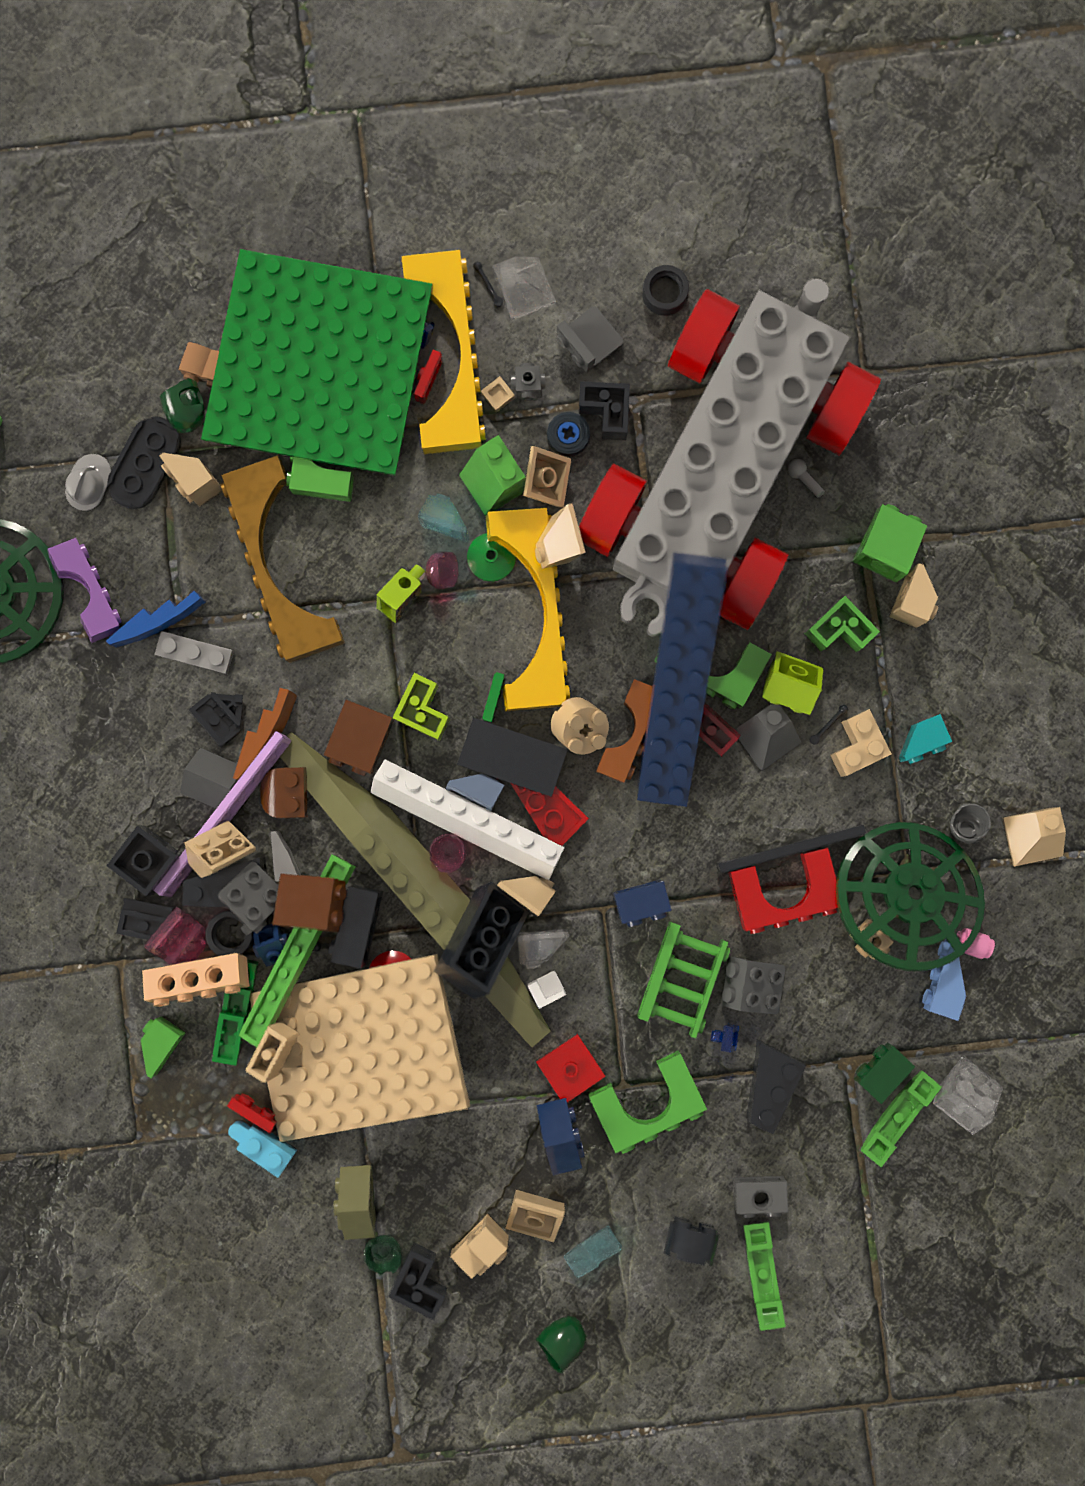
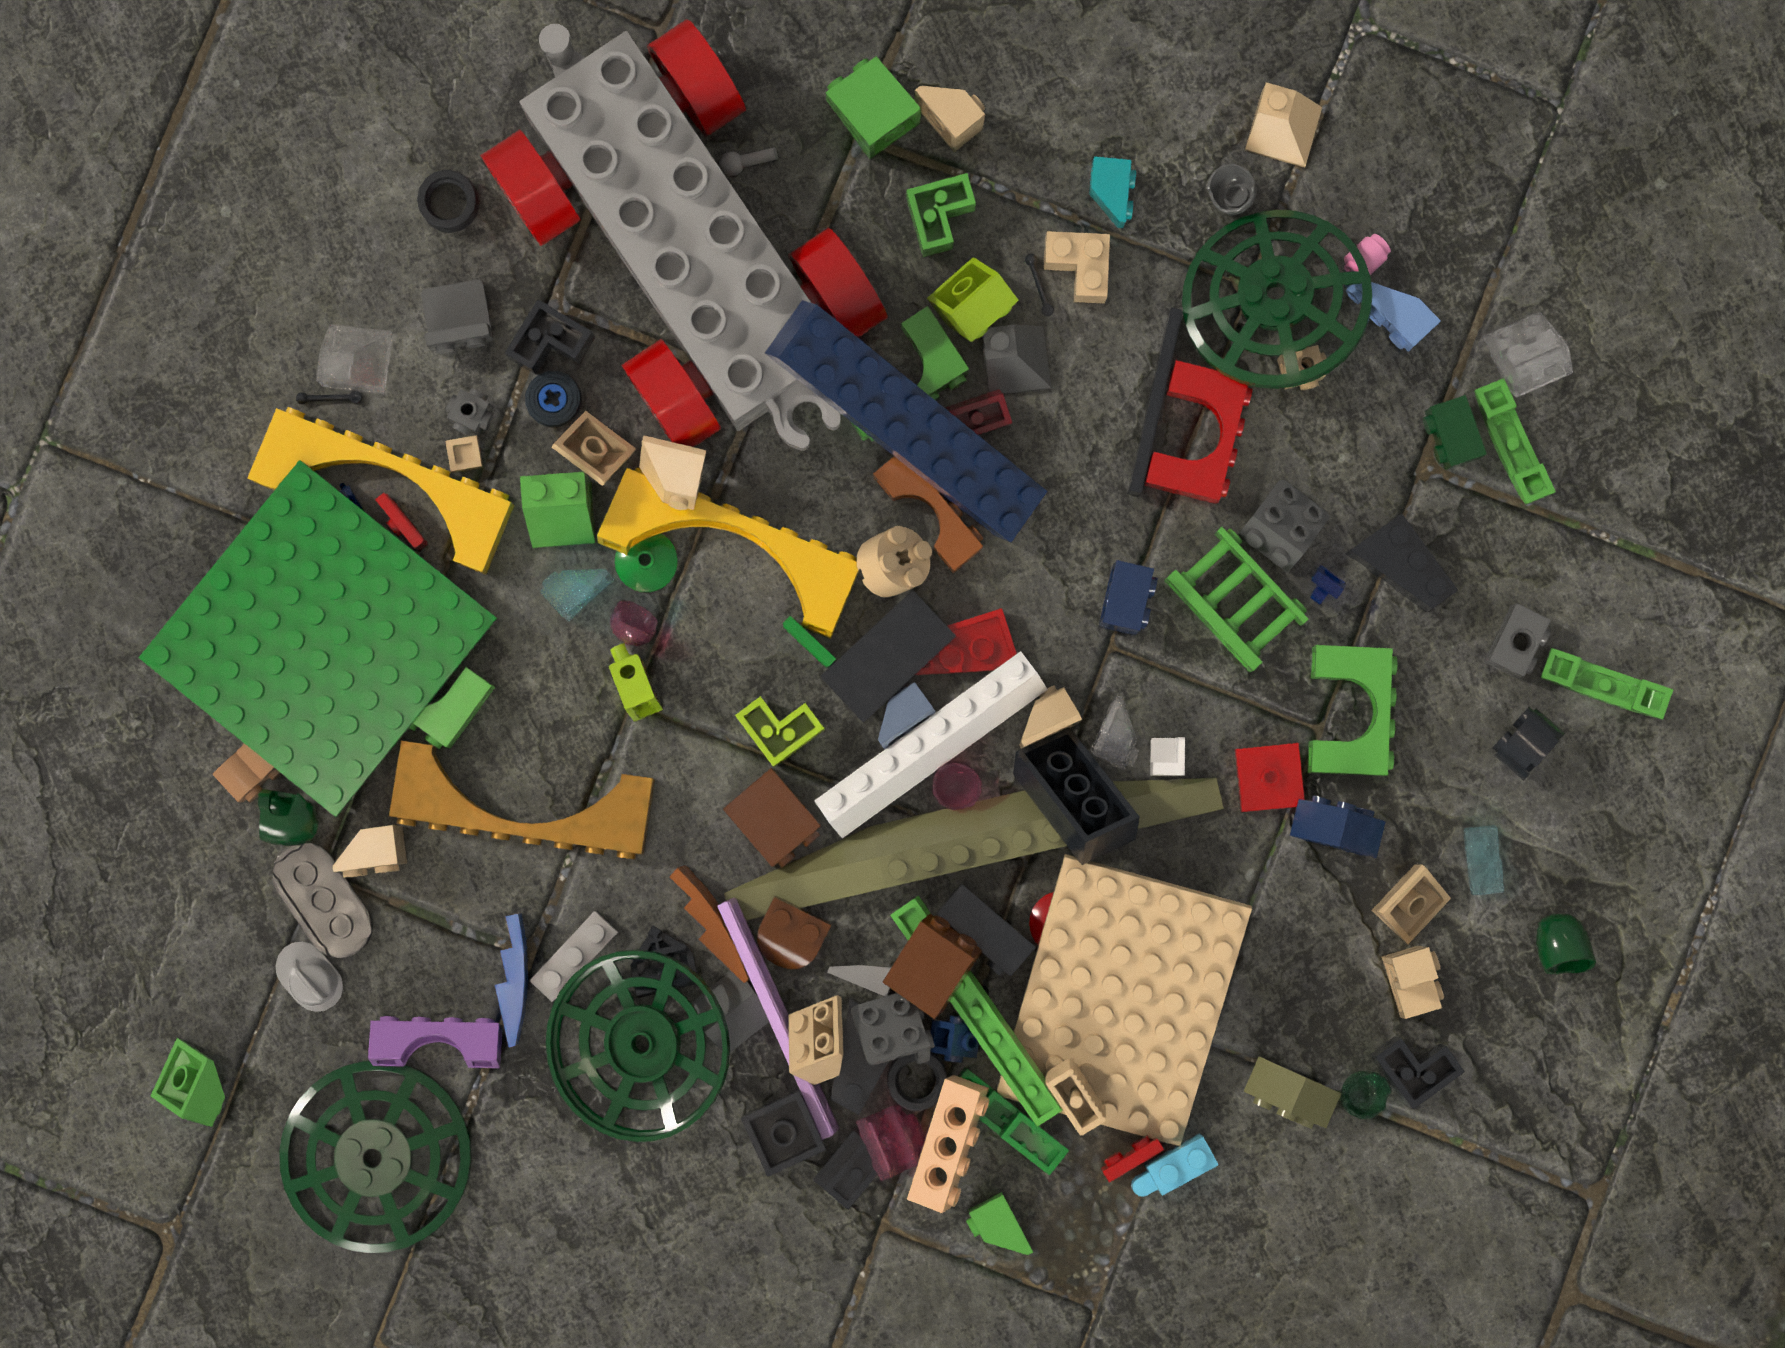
camera: 70 degrees left, 0 degrees up
(142, 726) = (622, 1049): none -> dark green dish

